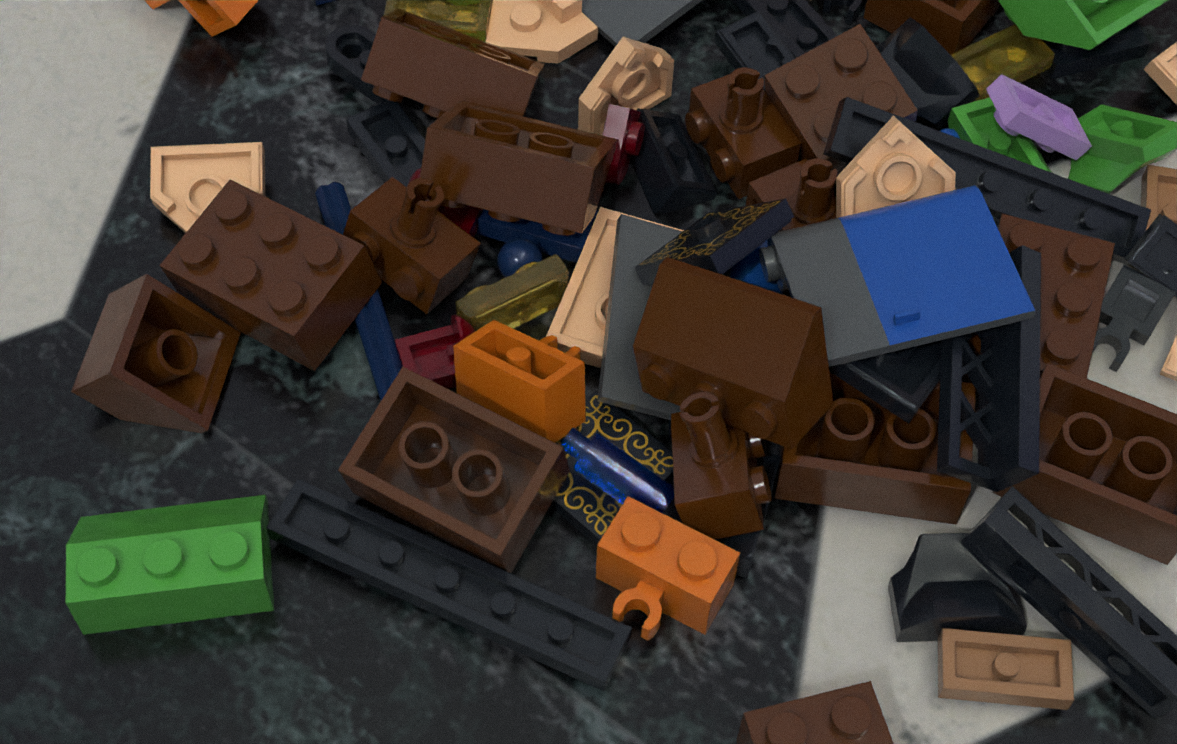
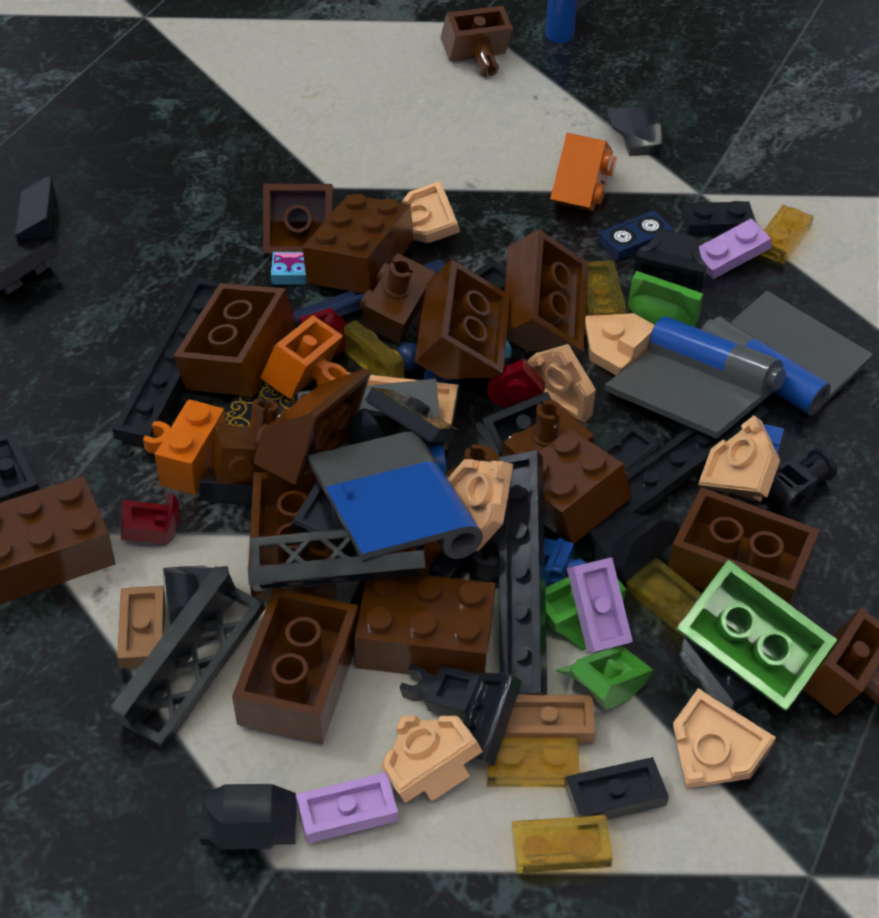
camera: 80 degrees right, 10 degrees down
(170, 565) = (172, 247): bright green slope -> none
(262, 394) = (288, 268): none -> tile
(616, 471) = (242, 409): clear blue cylinder -> none
(805, 639) = (150, 521): none -> dark red plate

